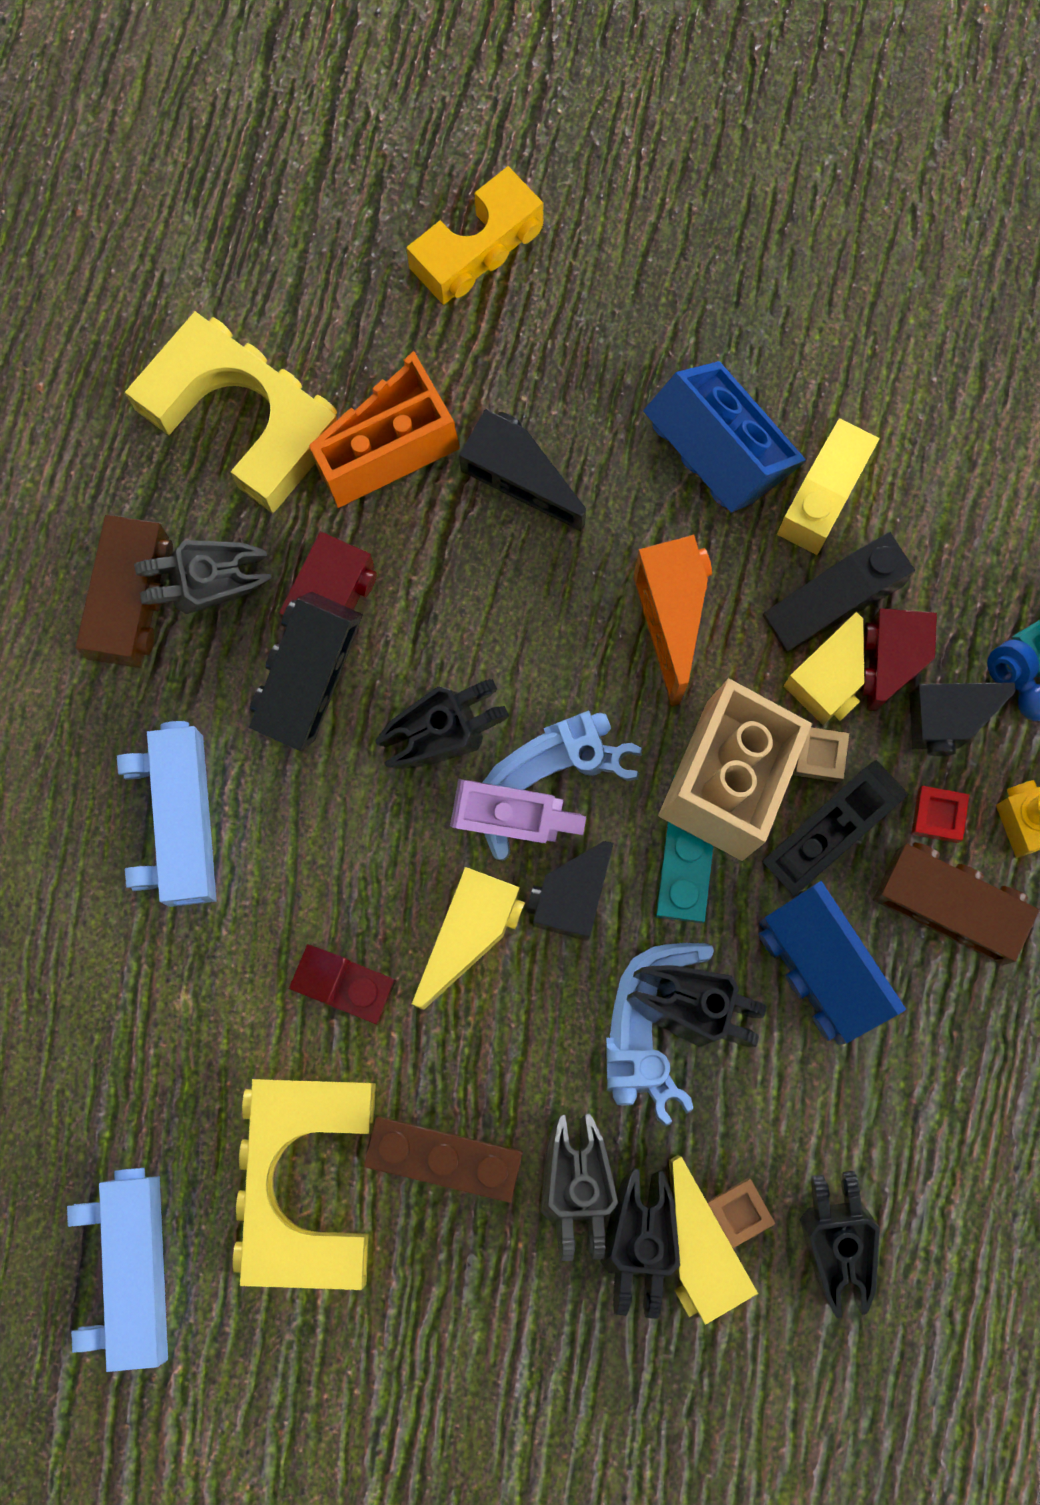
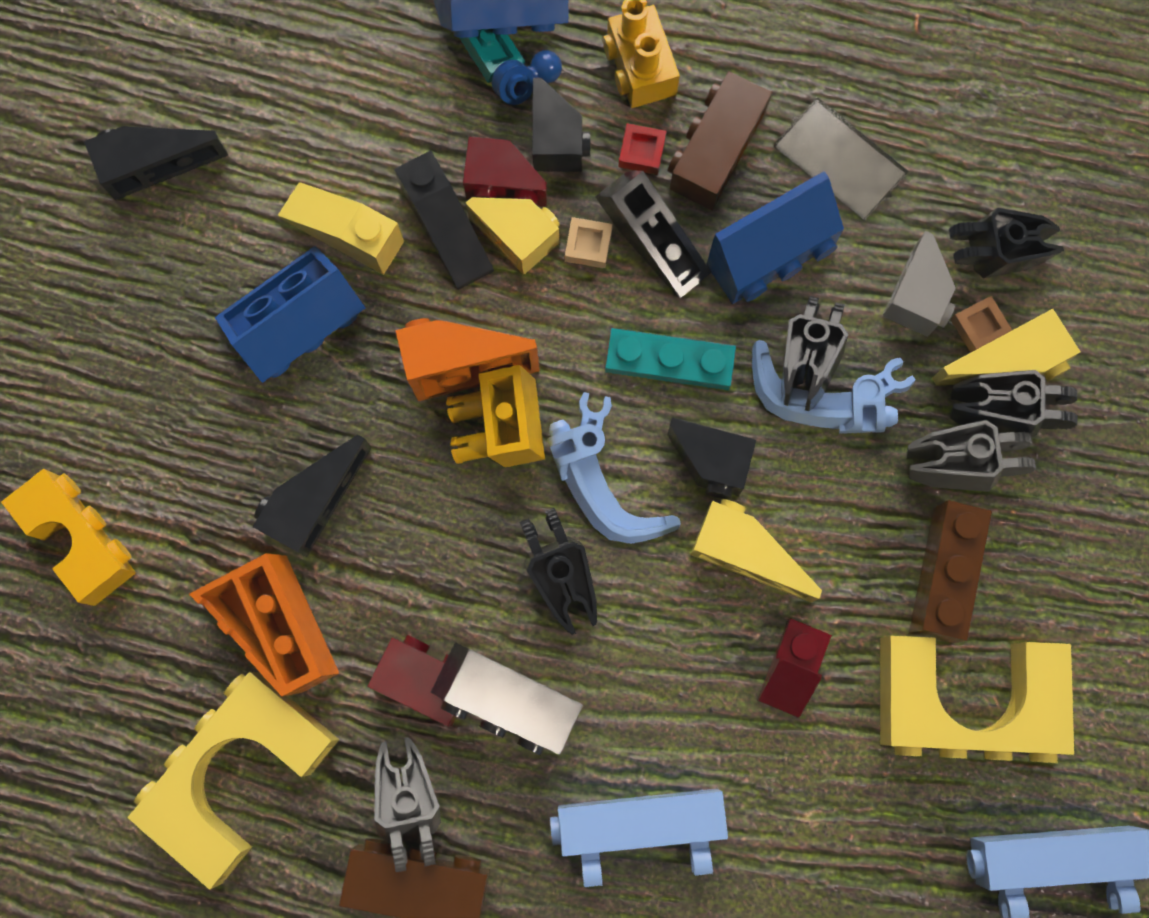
camera: 90 degrees left, 0 degrees up
(512, 812) = (641, 509): lavender hinge -> none
(612, 667) = (510, 419): none -> yellow brick
(735, 770) = (608, 308): tan brick -> none
(780, 1141) = (922, 290): none -> light grey slope
(894, 268) = (144, 156): none -> black slope
(946, 1053) = (857, 167): none -> clear smoke piece

